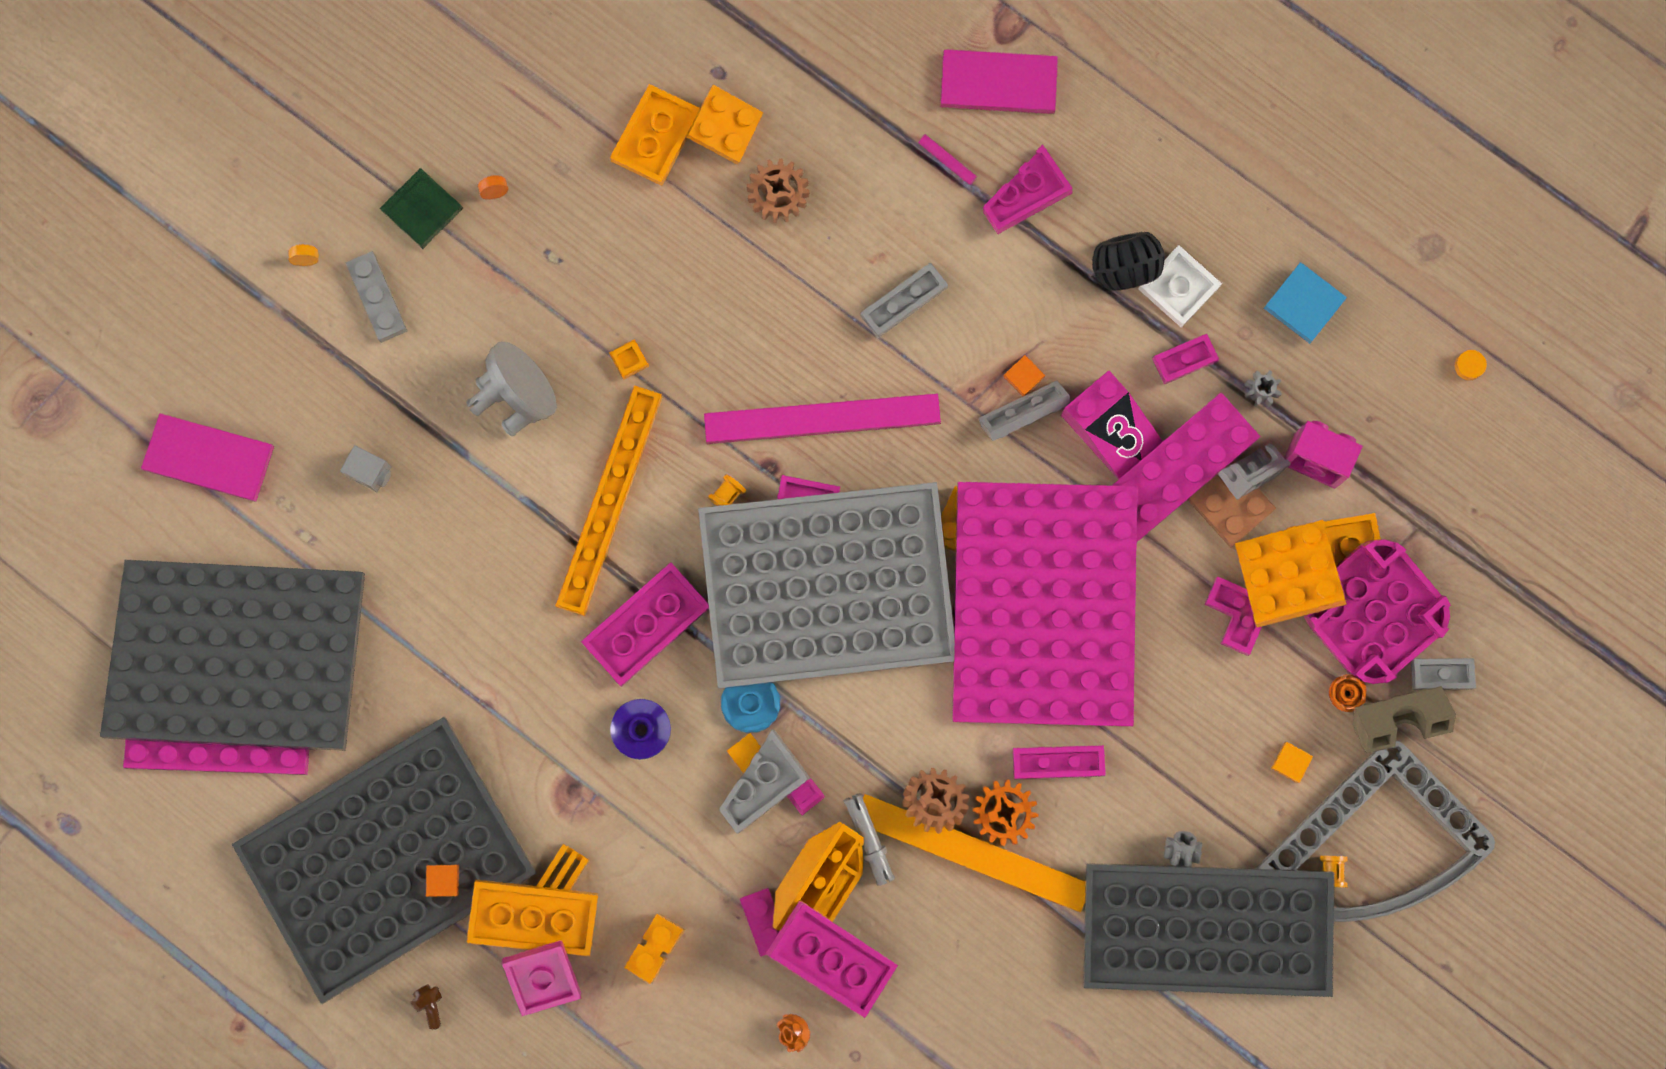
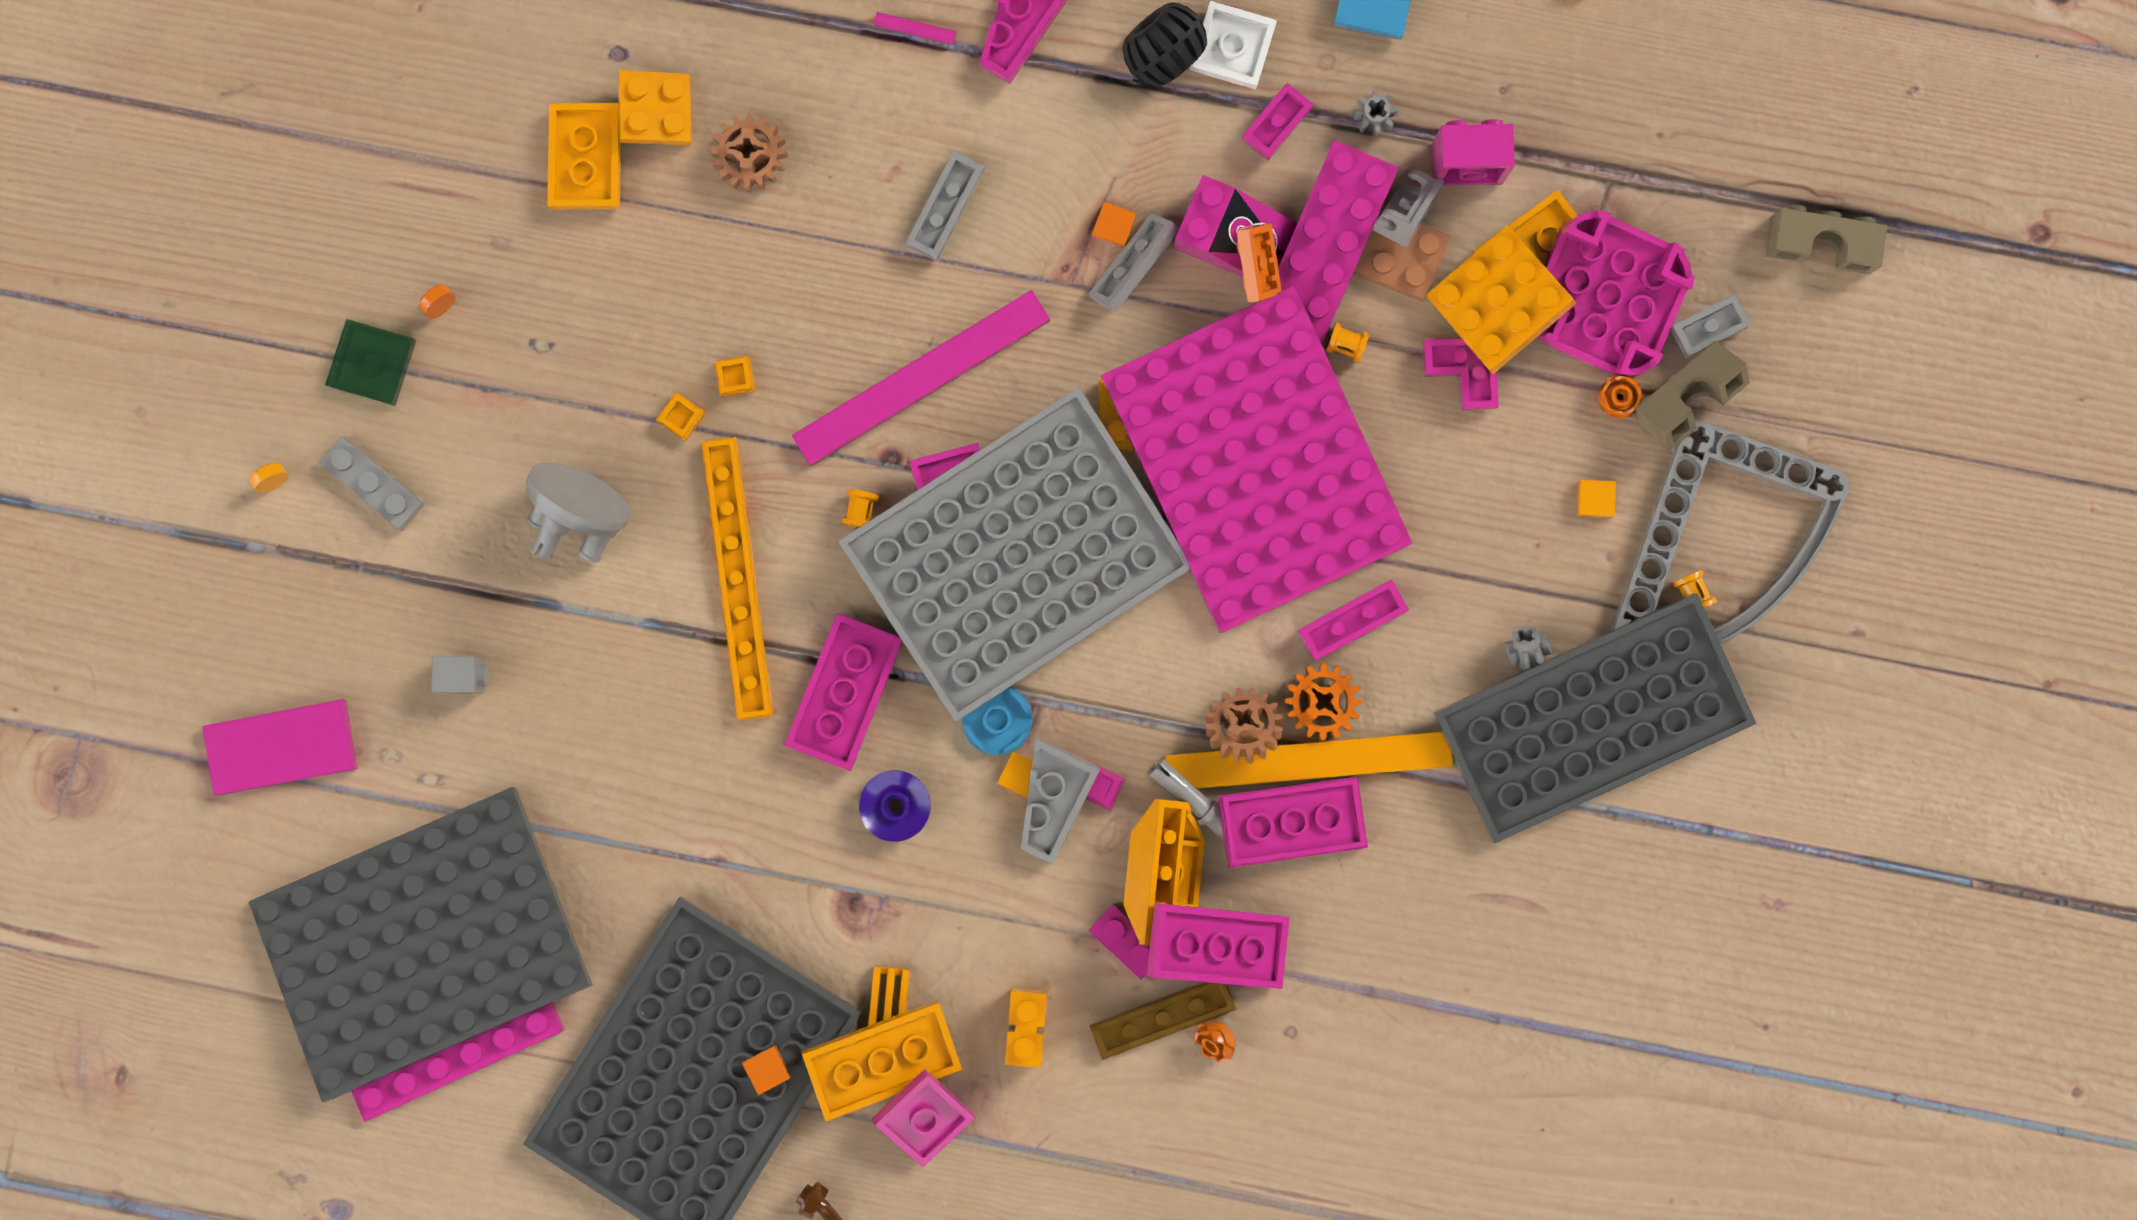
camera: 20 degrees left, 5 degrees up
(684, 349) = (734, 376): none -> light orange tile
(761, 994) = (1161, 1018): none -> pearl gold tile
(936, 893) = (1292, 822): none -> dark pink tile
(1119, 455) = (1258, 262): none -> orange bracket
(1157, 549) = (1347, 342): none -> light orange bush
(1588, 664) = (1857, 240): none -> dark tan arch

